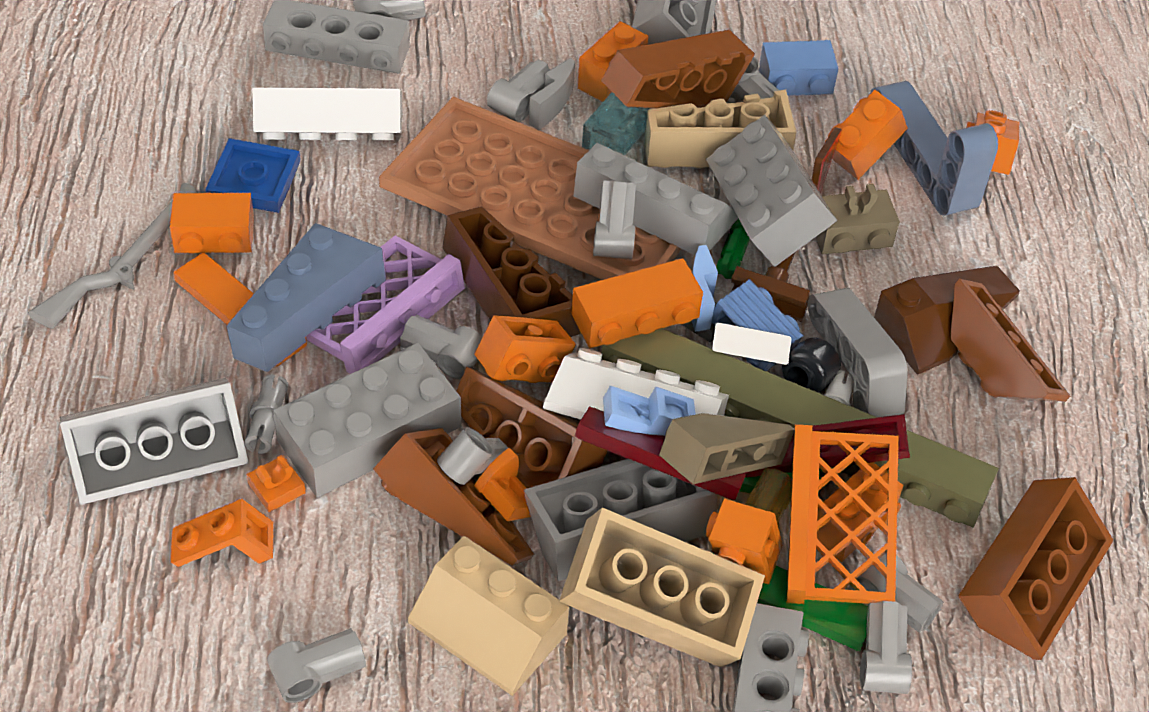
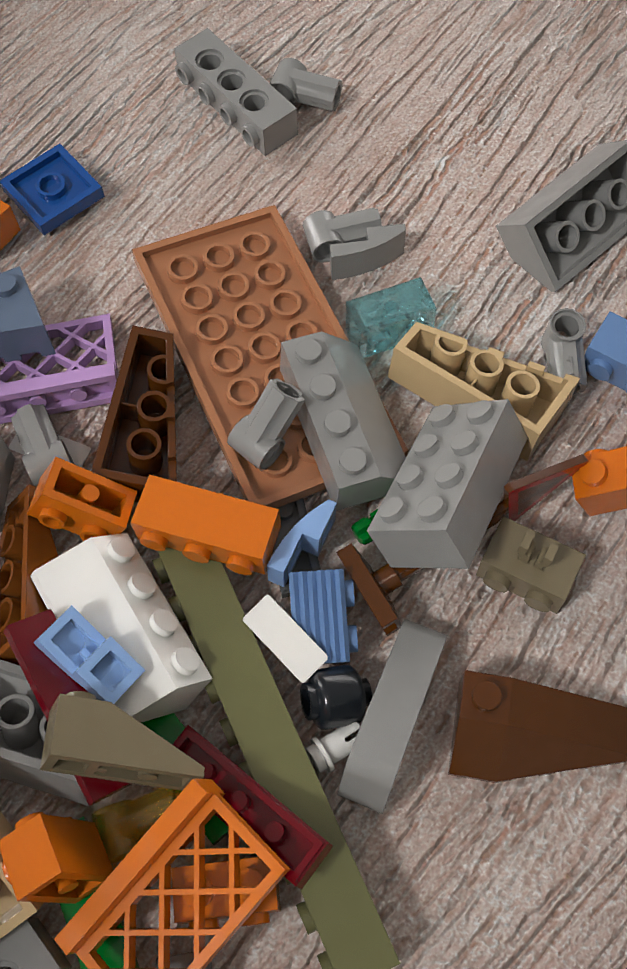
camera: 45 degrees right, 15 degrees up
(327, 111) = (160, 161): white slope -> none
(597, 58) = (450, 248): orange brick -> none
(679, 71) = (478, 299): dark orange wedge -> none
(998, 349) = (545, 830): dark orange wedge -> none

